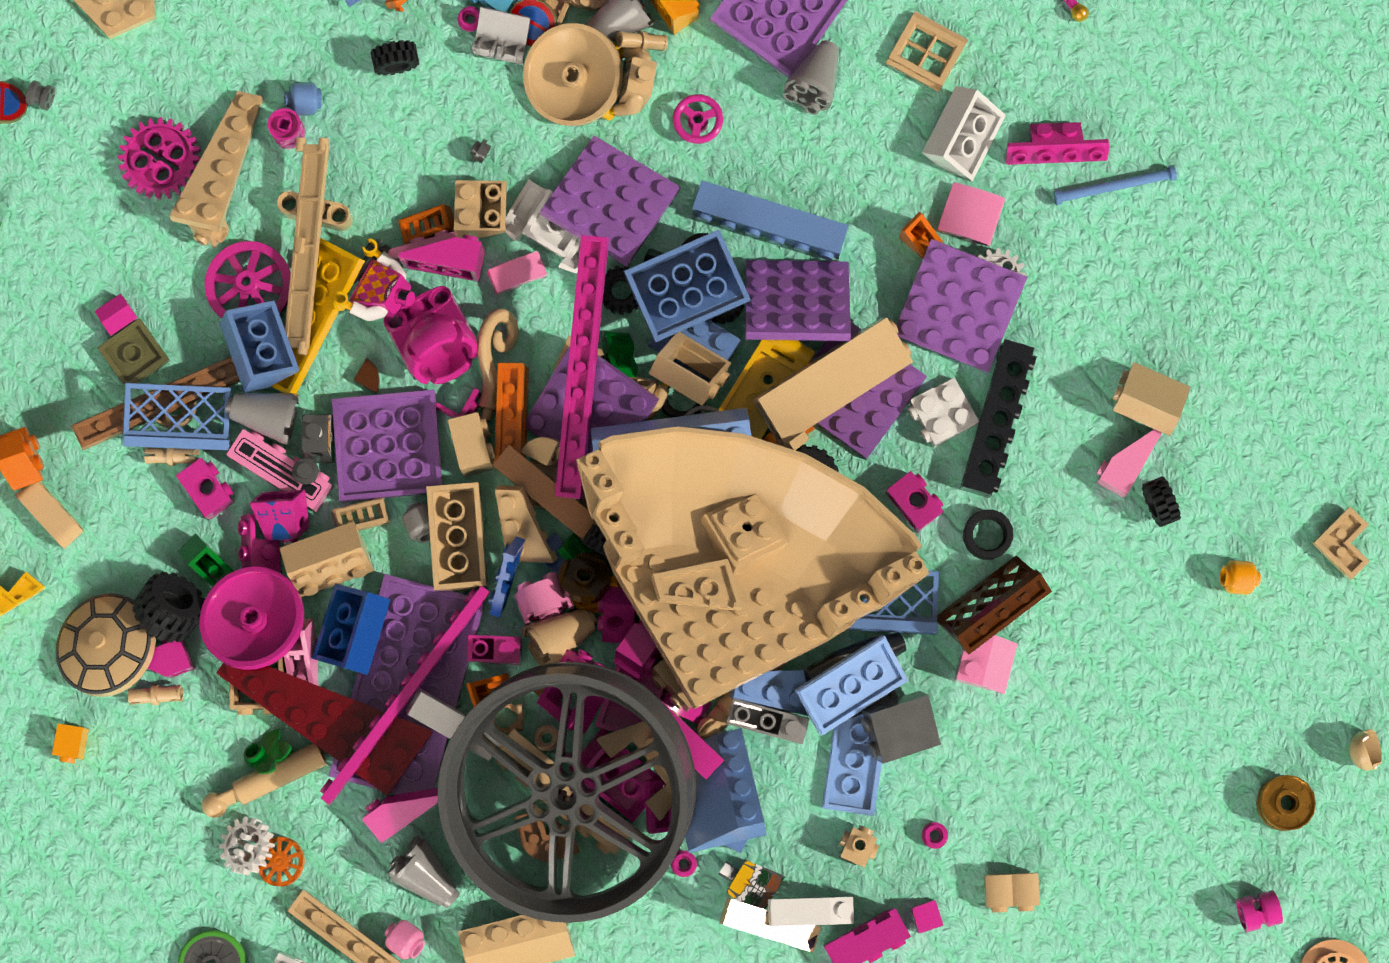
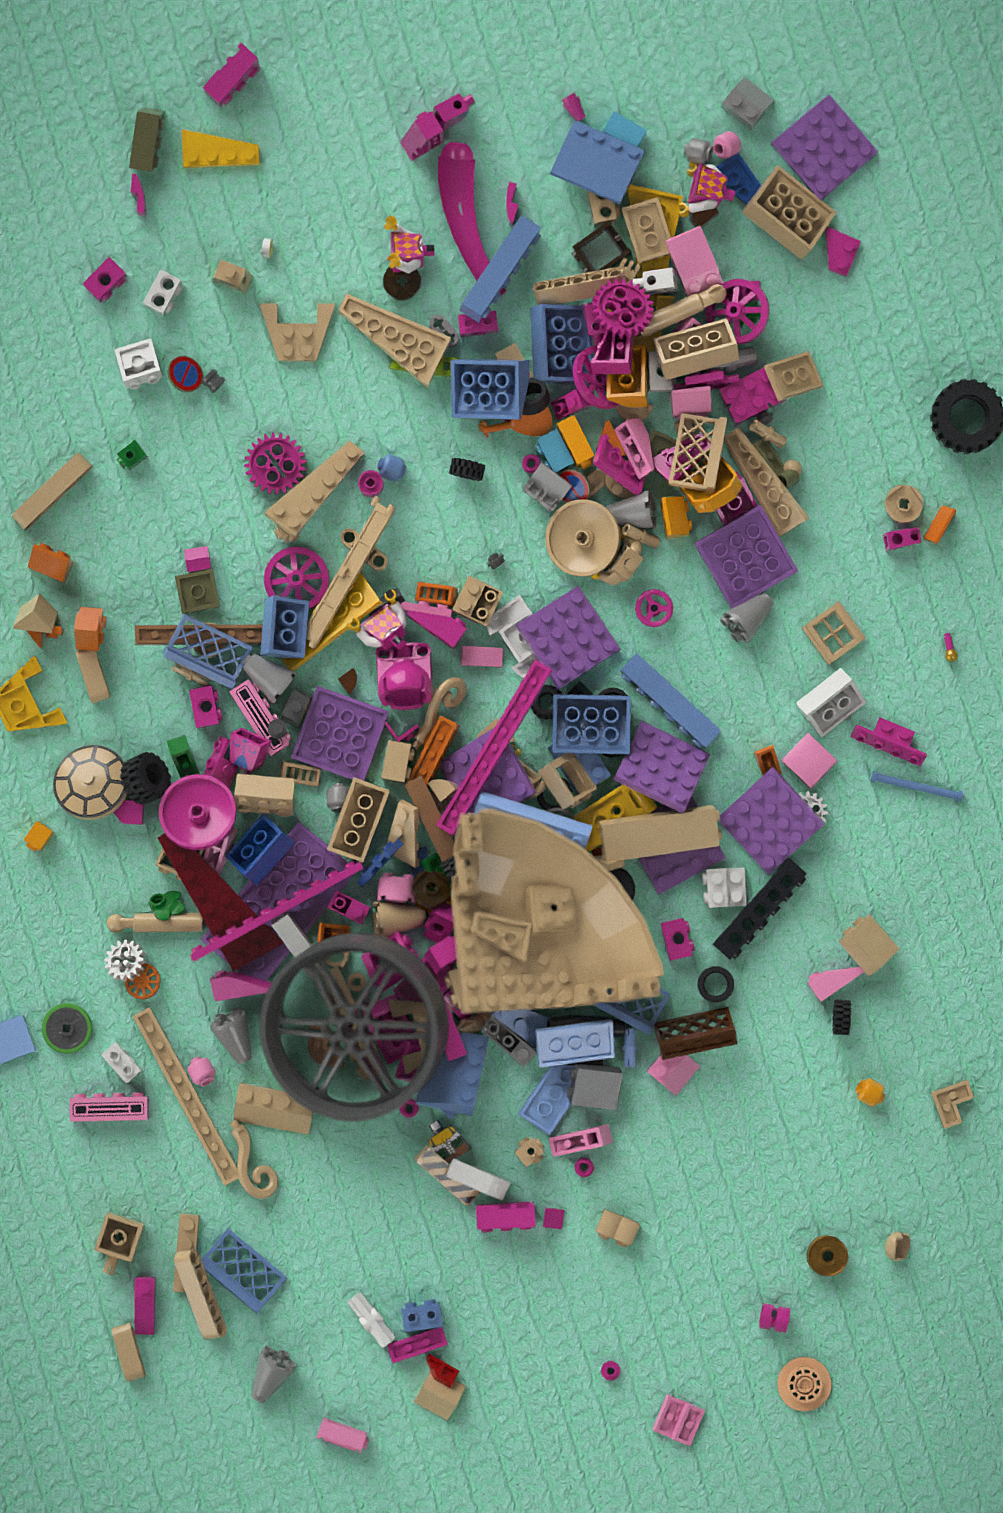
camera: 20 degrees right, 5 degrees up
(155, 694) = (109, 831): tan pin -> none
(620, 351) = (525, 745): green slope -> none
(915, 803) = (581, 1140): none -> bright pink slope
(920, 662) = (629, 1048): none -> light blue pin

